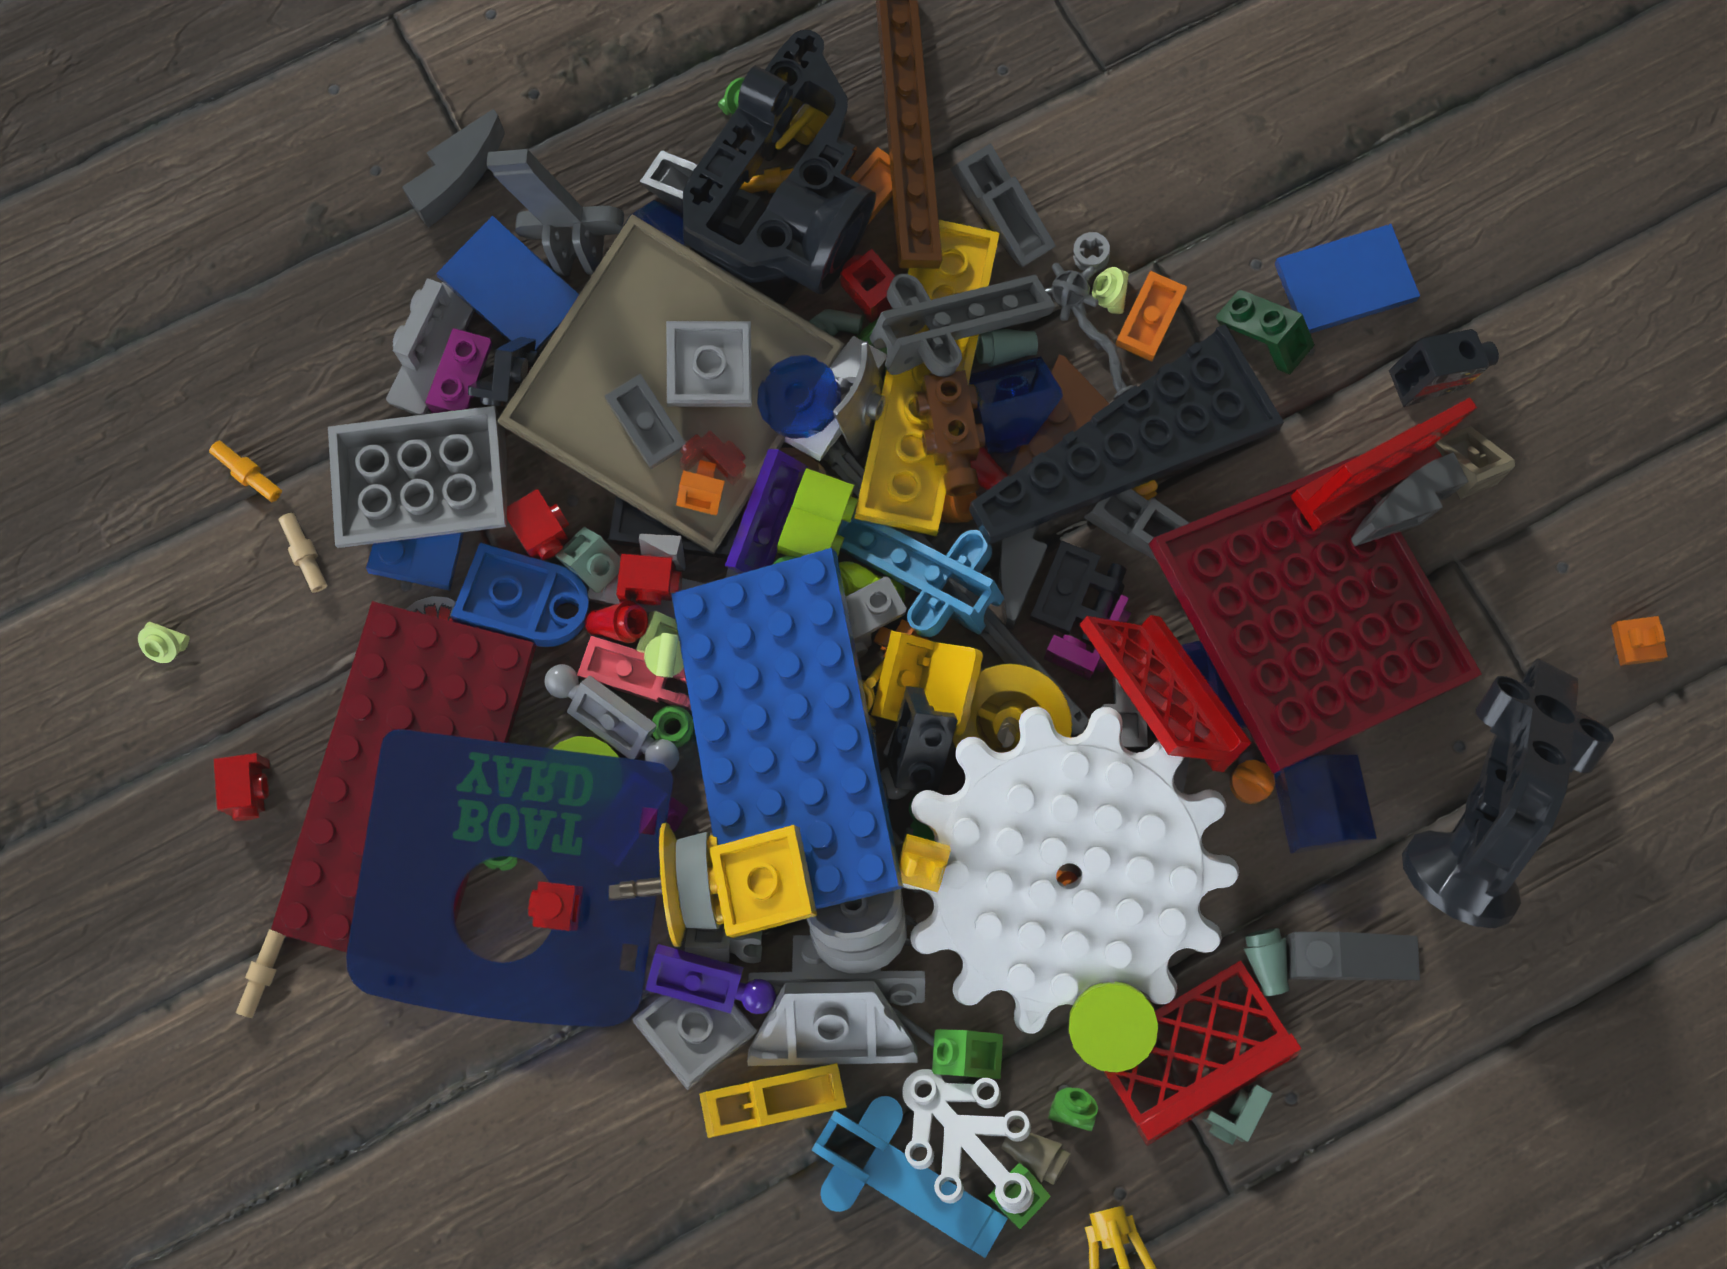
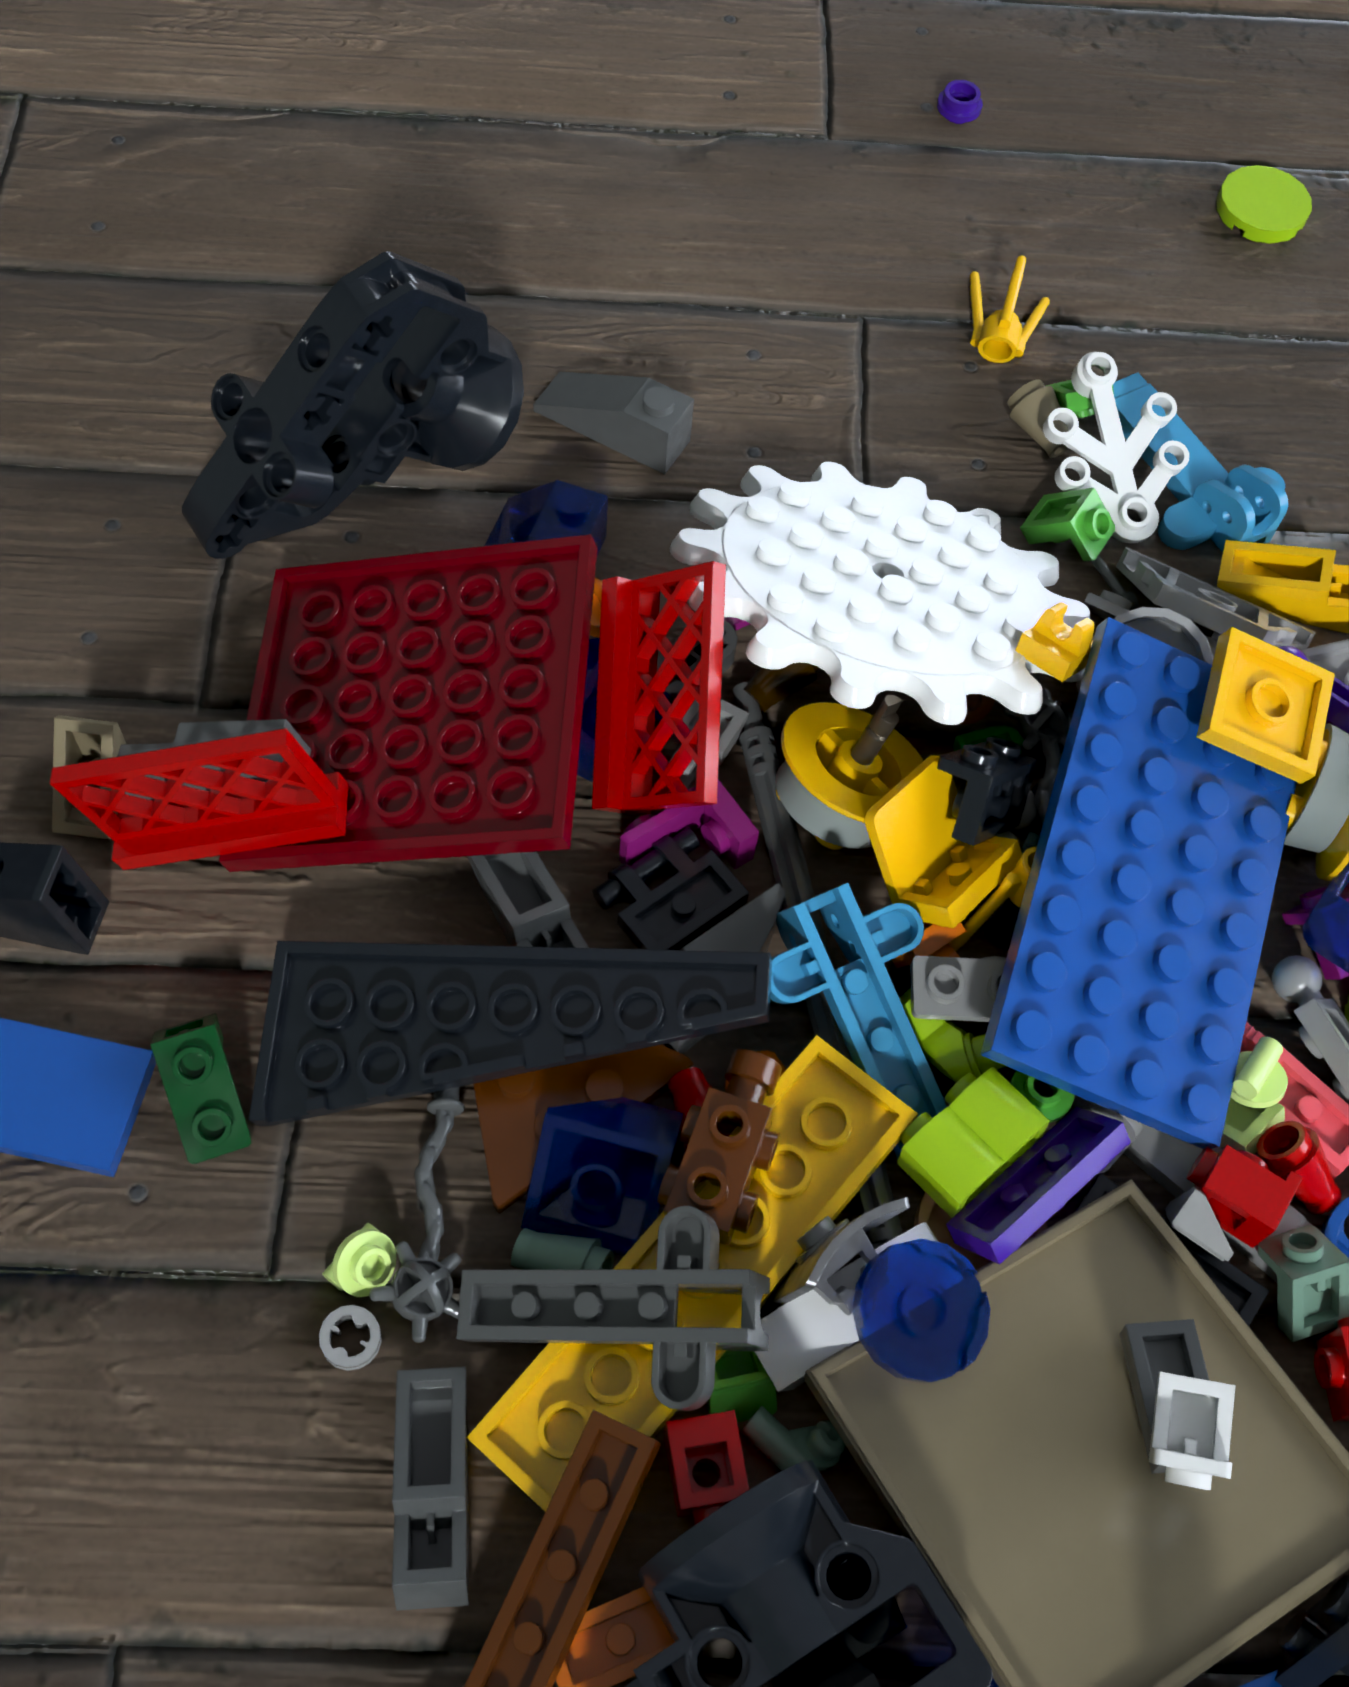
camera: 160 degrees left, 15 degrees down
(631, 385) = (1192, 1429): none -> white bracket
(673, 713) = (1278, 1005): bright green plate -> none
(700, 489) = (1125, 1253): orange tile -> none
(708, 363) = (1038, 1437): light grey plate -> none
(726, 456) = (1077, 1284): clear red bracket -> none
(1074, 1108) = (981, 435): bright green plate -> none
(1113, 1026) = (907, 462): lime tile -> none
(1151, 316) = (337, 1188): orange plate -> none
(1225, 1078) = (837, 377): red fence -> none
(1247, 1111) = (818, 345): sand green bracket -> none
(1268, 959) = (700, 455): sand green cone -> none
(1639, 640) = (77, 522): orange tile -> none

